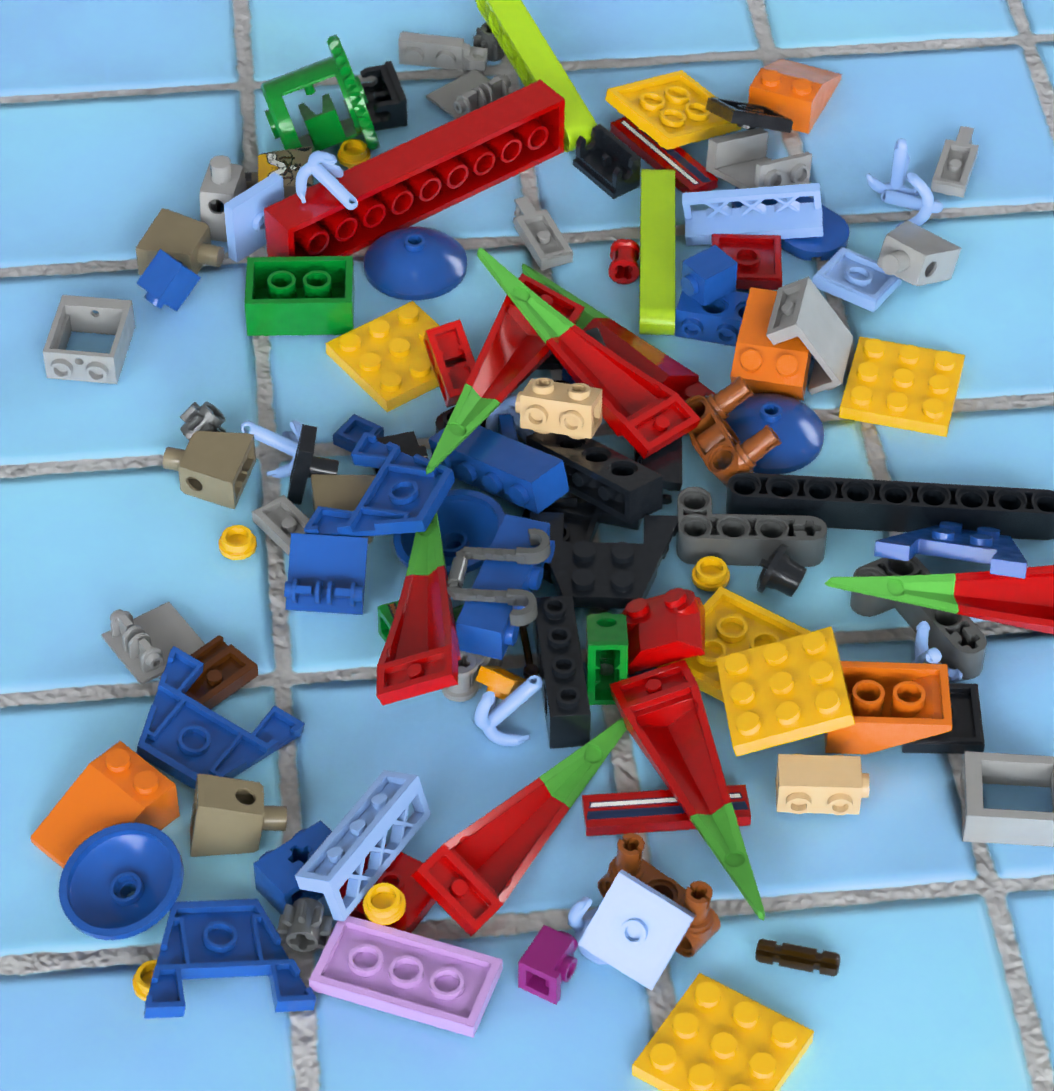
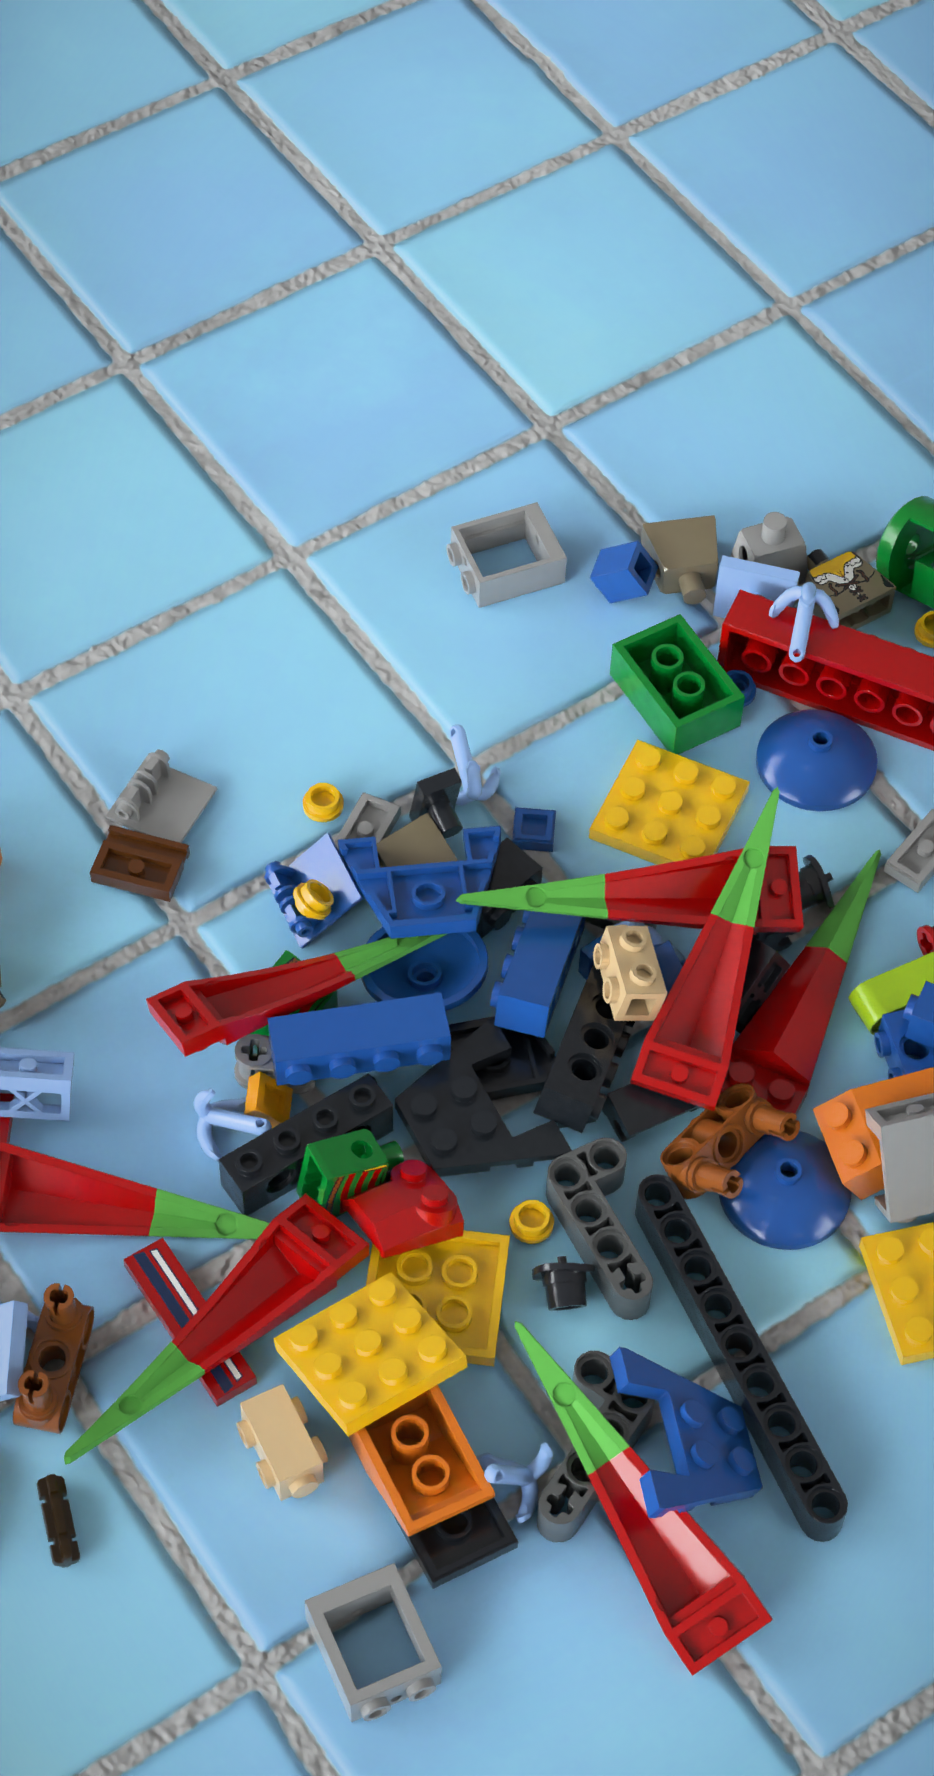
camera: 60 degrees right, 10 degrees up
(195, 740) = (49, 892): blue wing -> none
(202, 419) = (452, 697): dark grey gear -> none
(214, 465) = (407, 734): dark tan torso -> none
(345, 569) = (313, 899): none -> yellow plate
(450, 358) = (660, 841): red brick -> none
(513, 597) = (334, 988): dark grey piece -> none

